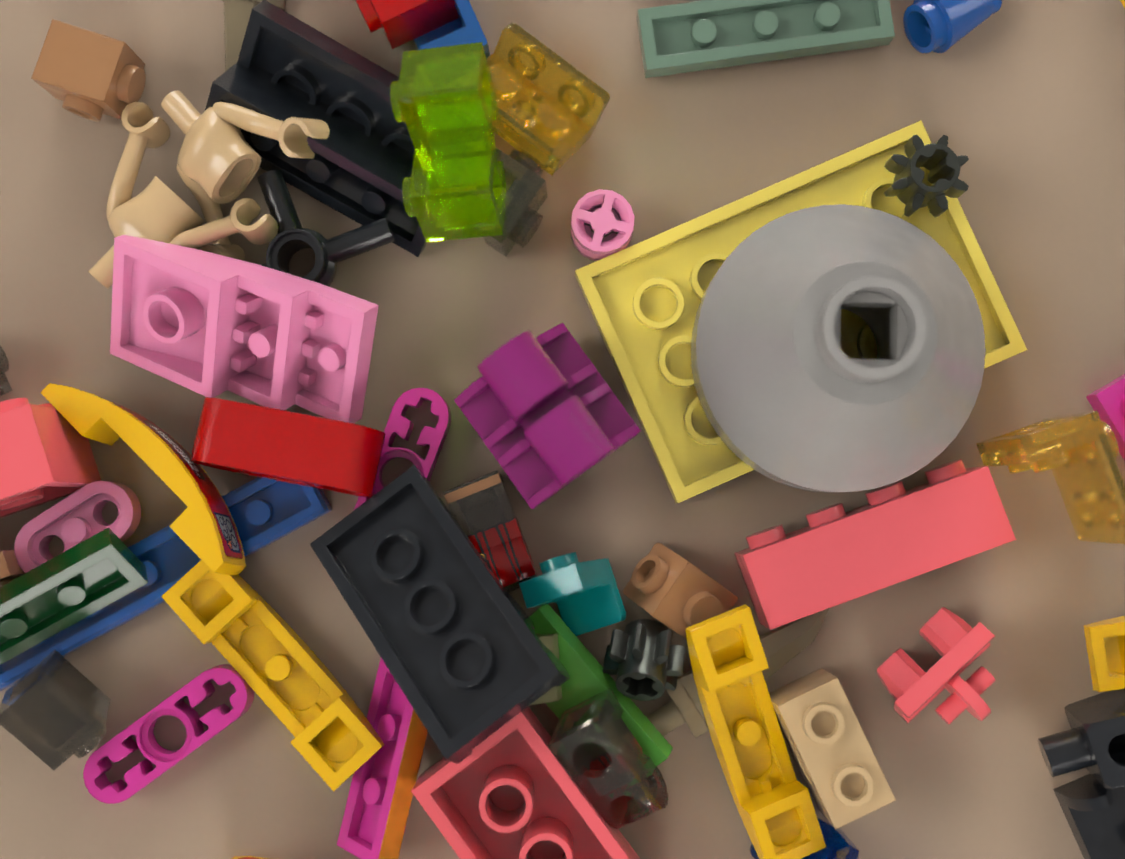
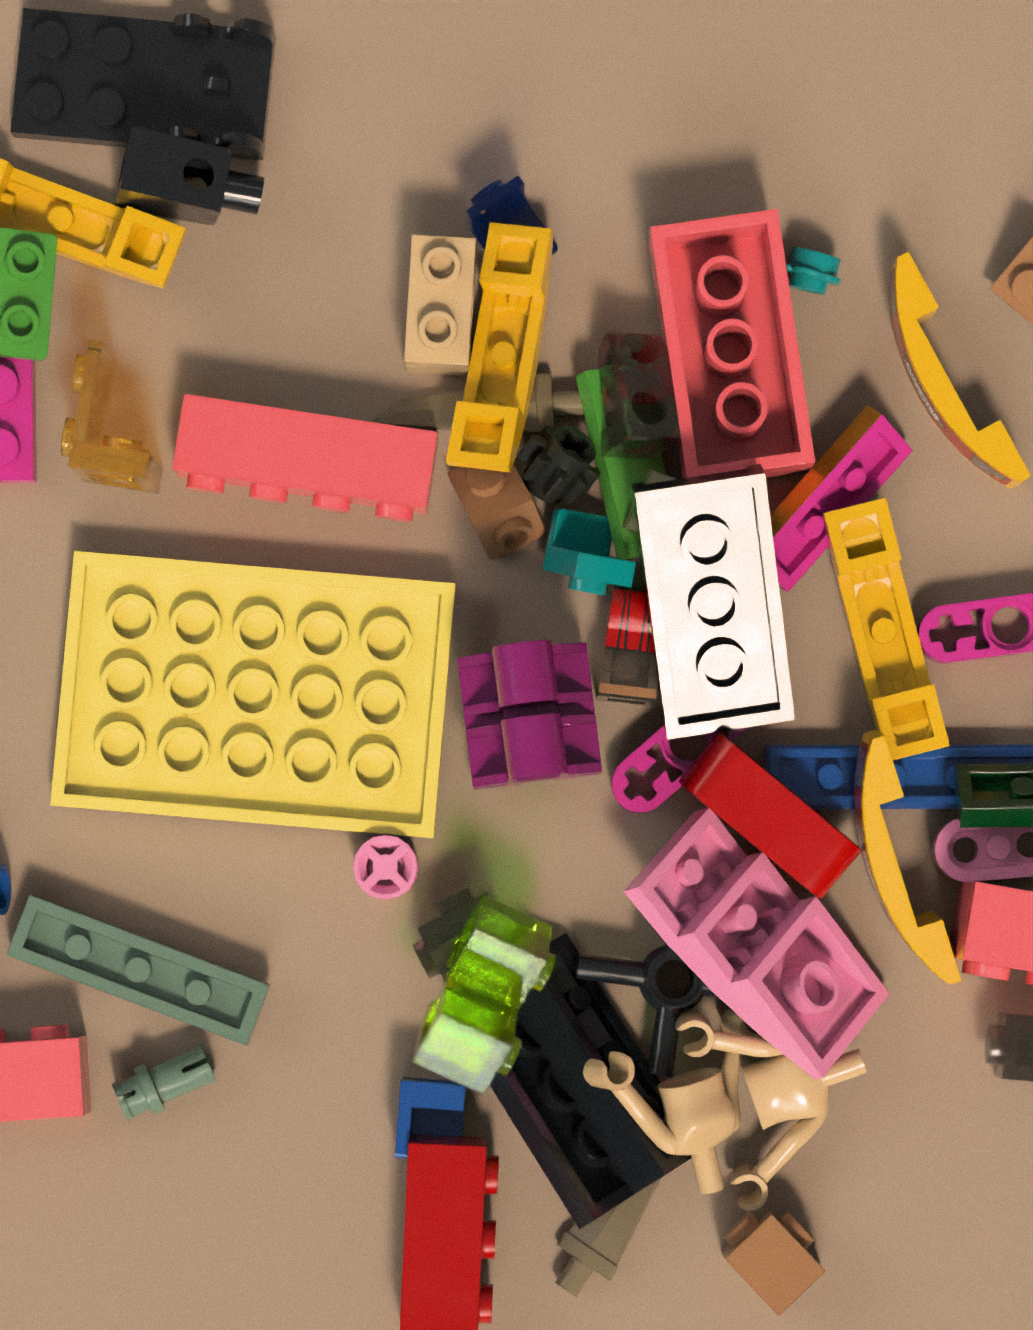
camera: 150 degrees left, 0 degrees up
(542, 100) = (379, 1009): clear yellow bracket -> none
(774, 361) = (309, 671): light grey cone -> none
(943, 174) = (100, 749): pearl dark grey gear -> none
(959, 648) = (280, 324): coral hips -> none

